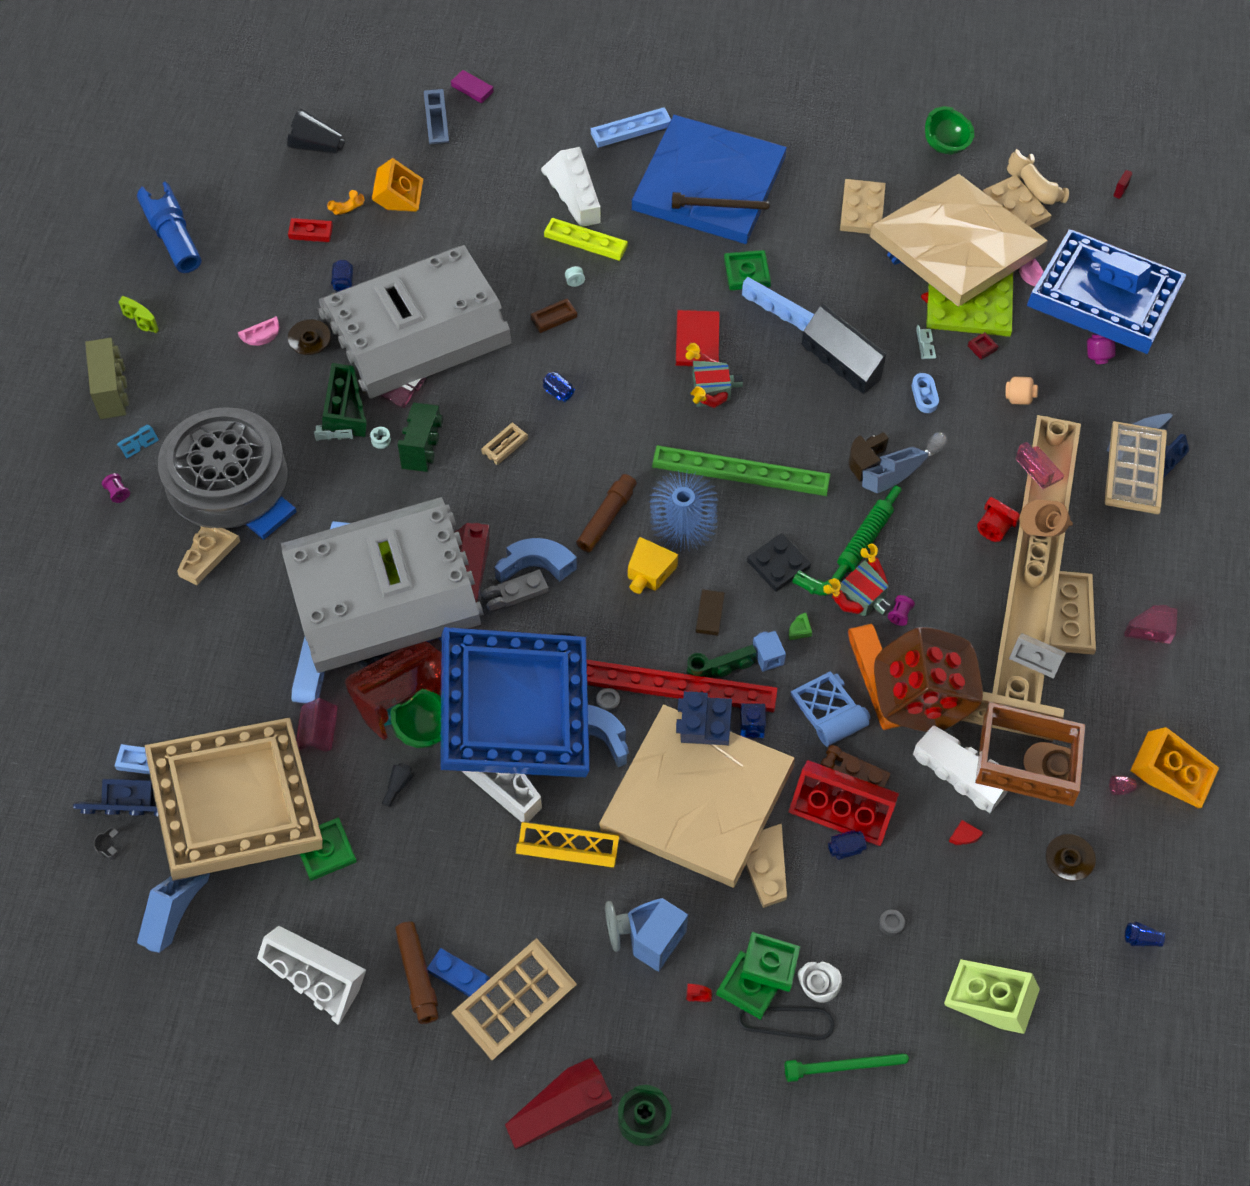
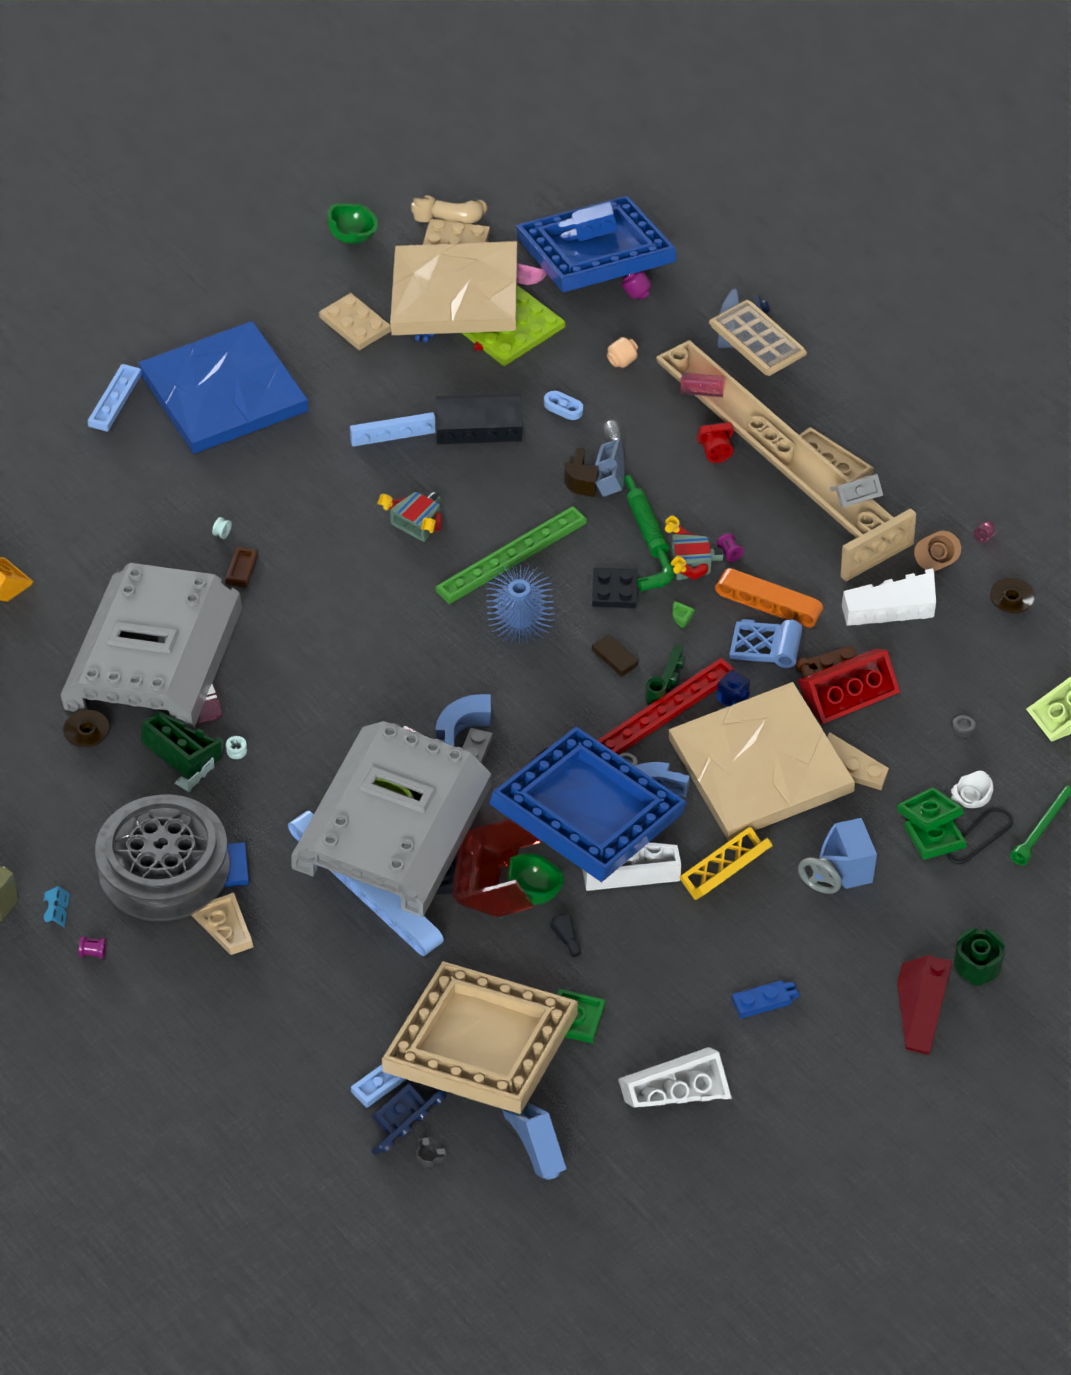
camera: 50 degrees left, 10 degrees down
(260, 333) = (40, 760): bright pink tile -> none
(317, 725) = (461, 951): clear pink panel -> none
(342, 275) = (47, 669): clear blue brick -> none
(420, 437) = (269, 719): dark green wedge -> none
(422, 994) = (760, 1028): reddish brown piece -> none
(507, 446) = (330, 689): tan tile -> none
(514, 999) = (816, 975): tan piece -> none
(558, 386) = (316, 606): clear blue brick -> none
(571, 179) = (134, 468): white wedge -> none
(585, 239) = (189, 499): neon yellow tile -> none
(617, 497) = (458, 640): reddish brown piece -> none
(650, 565) = (538, 660): yellow torso -> none
(680, 200) = (231, 414): dark brown piece -> none
(697, 328) = (360, 496): red tile -> none
(698, 993) = (913, 868): red tile -> none
(704, 719) = (709, 711): dark blue plate -> none
(744, 265) = (332, 426): green tile -> none
(769, 650) = (689, 637): medium blue brick -> none
(847, 844) = (883, 706): clear blue brick -> none
(924, 343) = (522, 378): light aqua piece -> none
(928, 679) = (814, 561): reddish brown piece -> none
(965, 834) = (937, 639): red tile -> none
(982, 346) = (557, 346): dark red tile -> none
(1023, 781) = (971, 549): dark orange window -> none
(1045, 518) = (753, 408): medium nougat piece -> none
(1123, 184) = (509, 169): dark red tile -> none
(1154, 624) = (886, 423): clear pink slope -> none
(1174, 767) = (999, 494): light orange slope -> none

